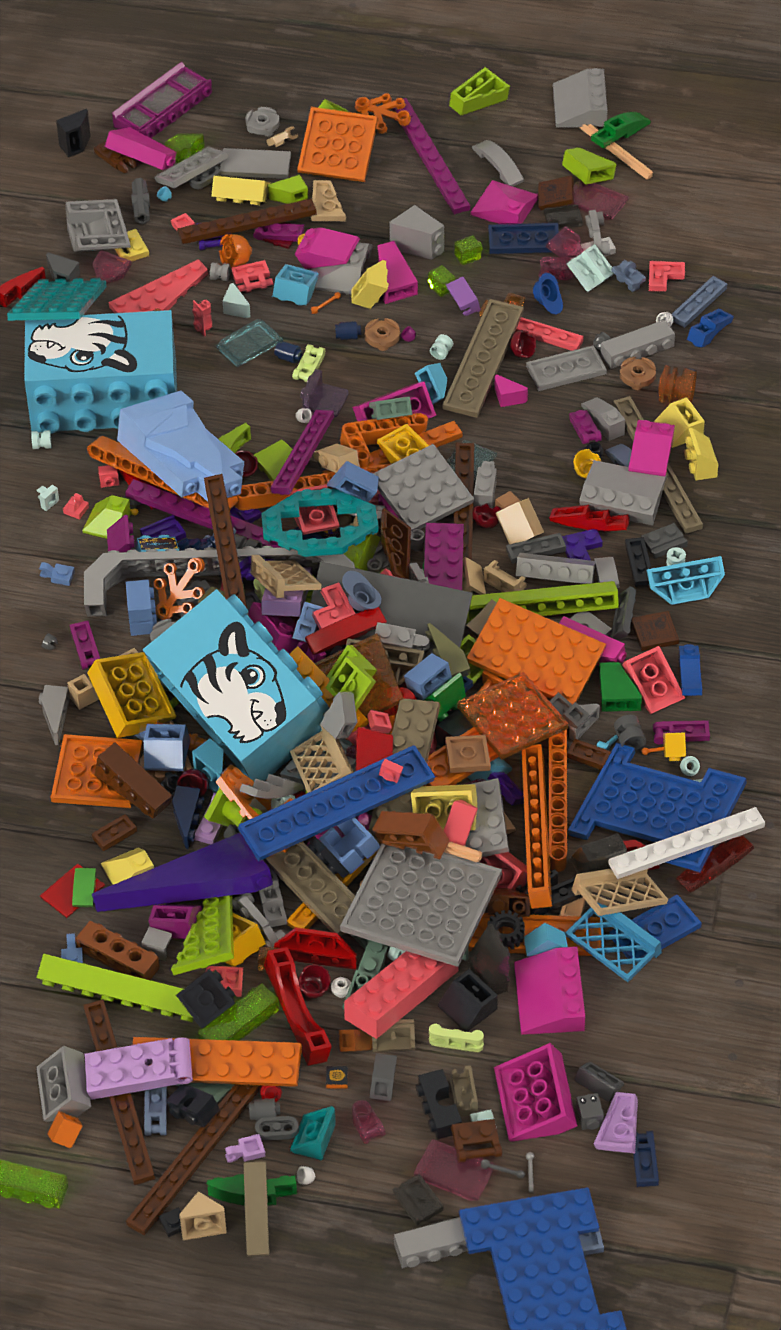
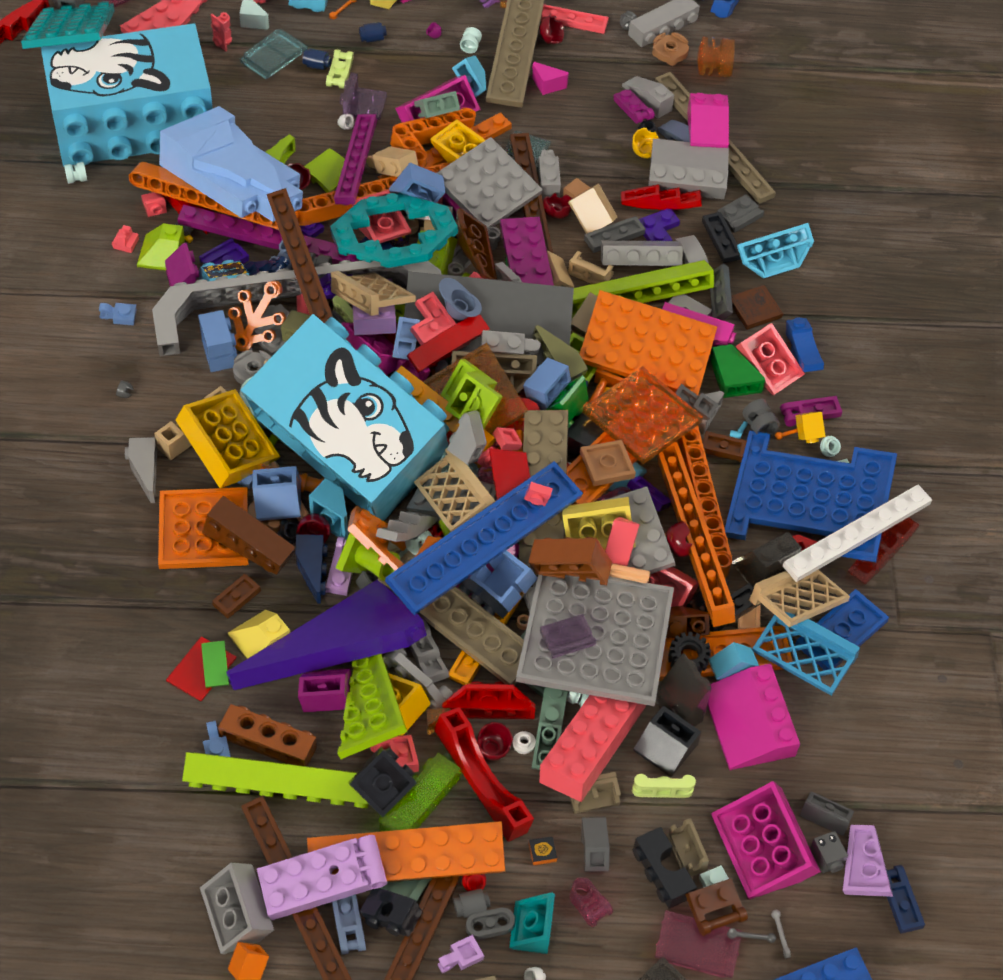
camera: 15 degrees left, 5 degrees up
(48, 496) = (93, 232): light aqua tile -> none
(84, 643) = (163, 387): magenta plate -> none
(157, 942) = (310, 718): light grey panel -> none
(354, 1040) = (553, 804): dark orange panel -> none
(382, 341) = (407, 40): medium nougat plate -> none
(393, 897) = (567, 636): none -> clear purple plate
(513, 829) = (676, 539): none -> dark red hair
(566, 368) = (598, 50): light grey tile -> none
(675, 556) = (757, 229): light aqua wheel -> none
(683, 416) = (731, 84): light yellow slope -> none
(700, 455) = (755, 124): light yellow slope -> none

